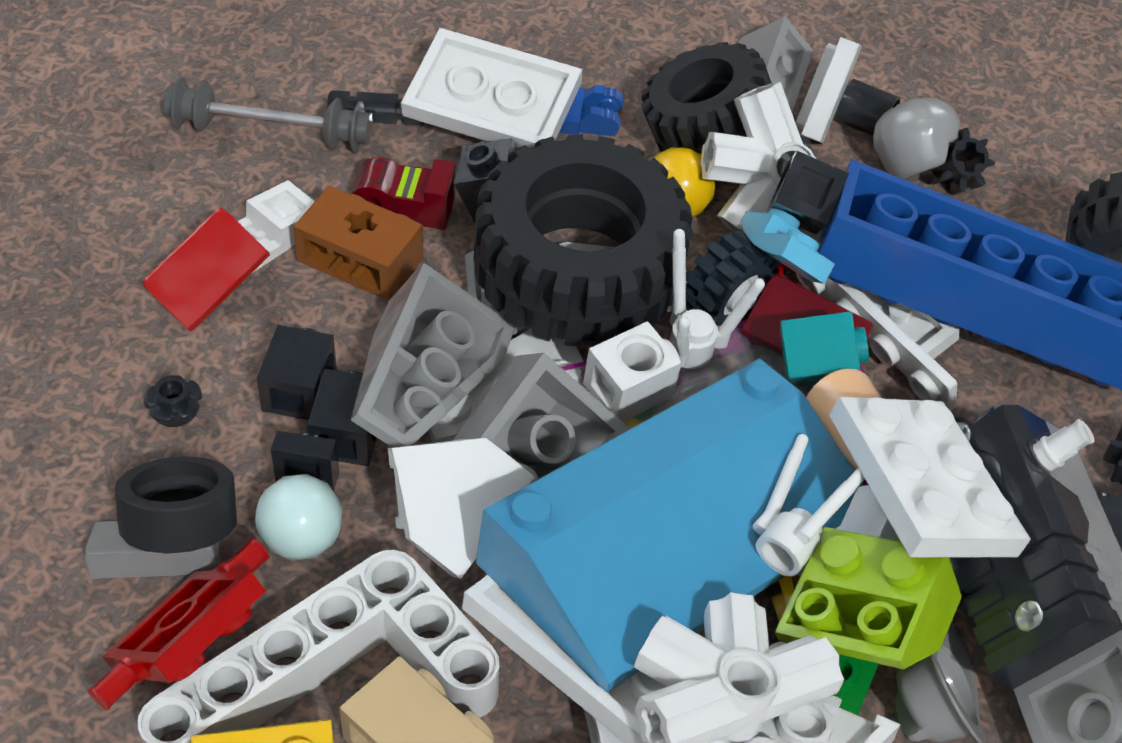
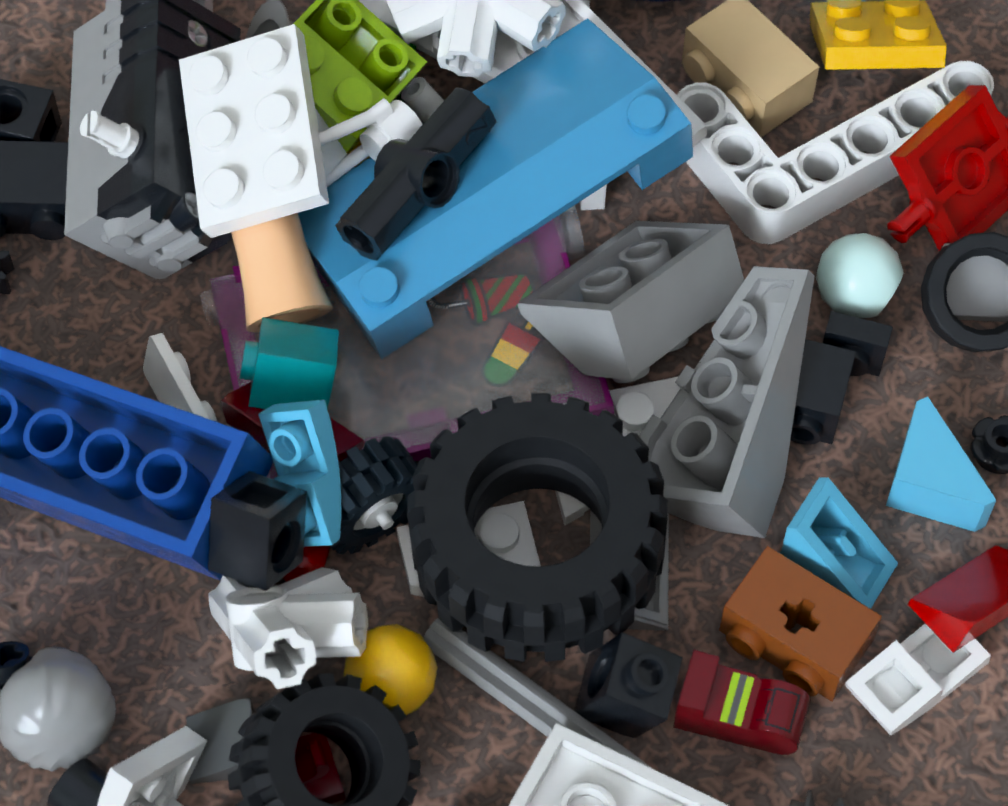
camera: 170 degrees left, 10 degrees up
(234, 354) = (937, 476): none -> medium azure slope
(294, 370) = (868, 449): black brick -> none
(333, 297) = (838, 544): none -> medium azure slope
(445, 492) = (707, 224): white slope -> none
(632, 371) = (507, 345): white brick -> none
(694, 330) = (424, 409): white plant -> none
(752, 468) = (416, 173): none -> black piece

